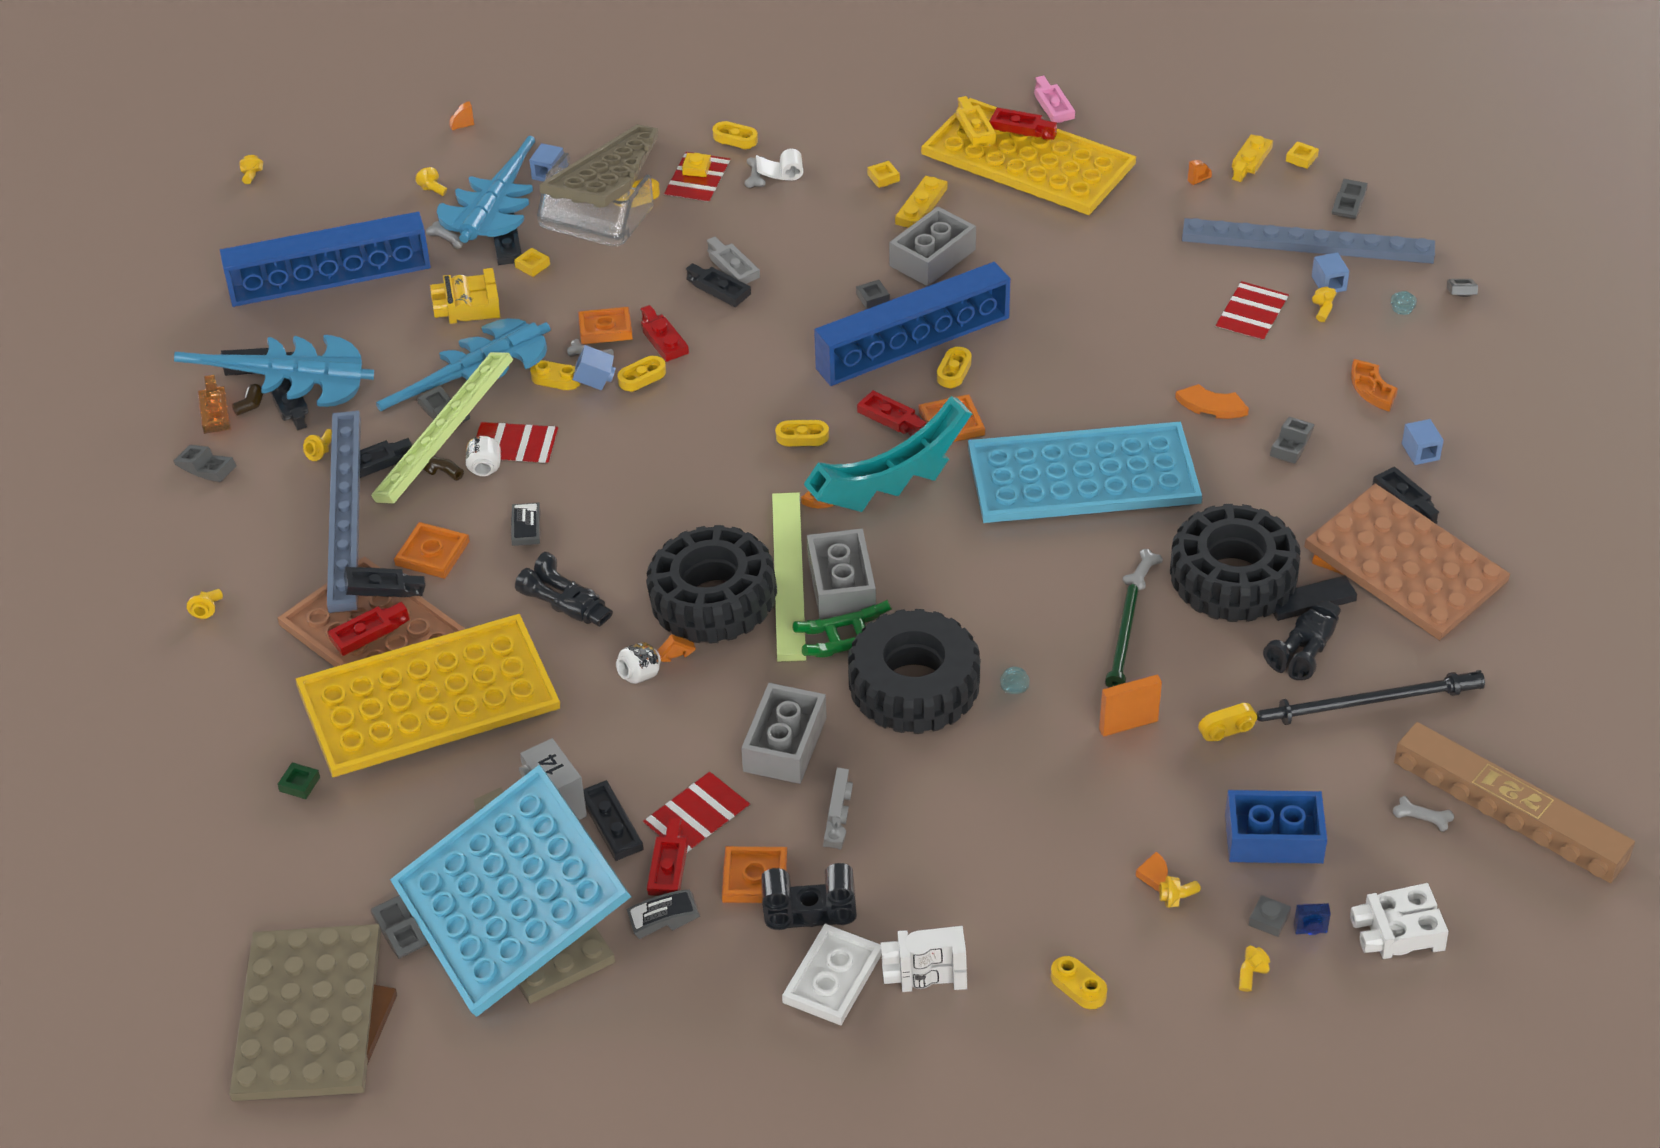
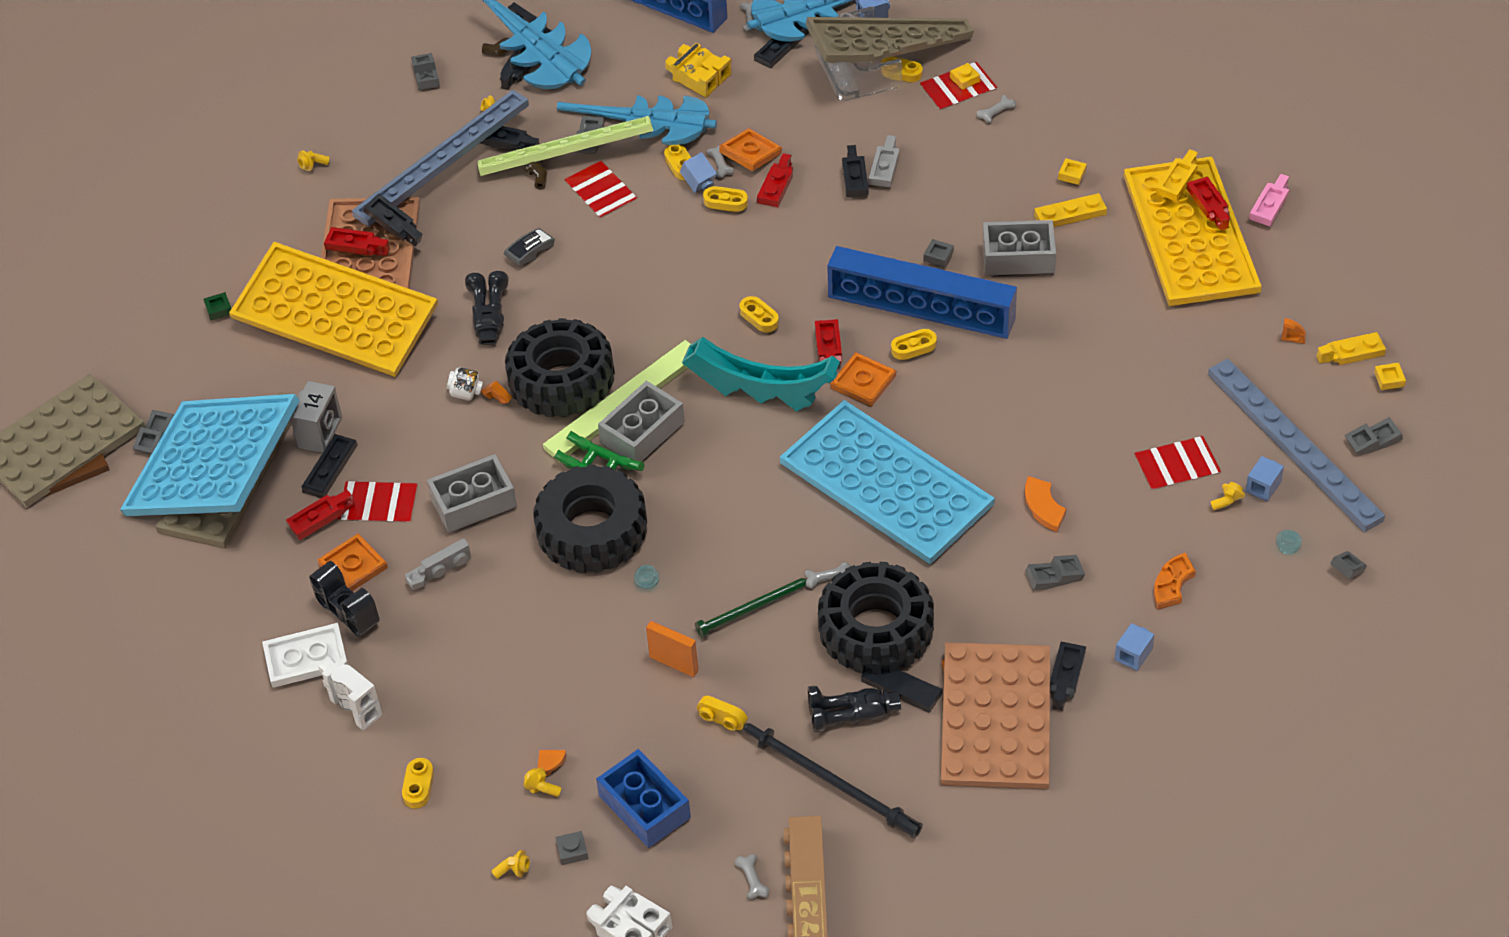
camera: 50 degrees right, 5 degrees up
(213, 407) = (473, 36): clear orange hinge -> none
(431, 550) = (464, 222): orange tile -> none
(483, 455) = (562, 182): white head -> none
(532, 262) = (772, 72): yellow tile -> none
(667, 909) = (277, 540): slope -> none
(735, 135) = (1018, 71): yellow plate -> none
(788, 169) = (1012, 118): white panel -> none
(1312, 918) = (584, 871): clear blue plate -> none

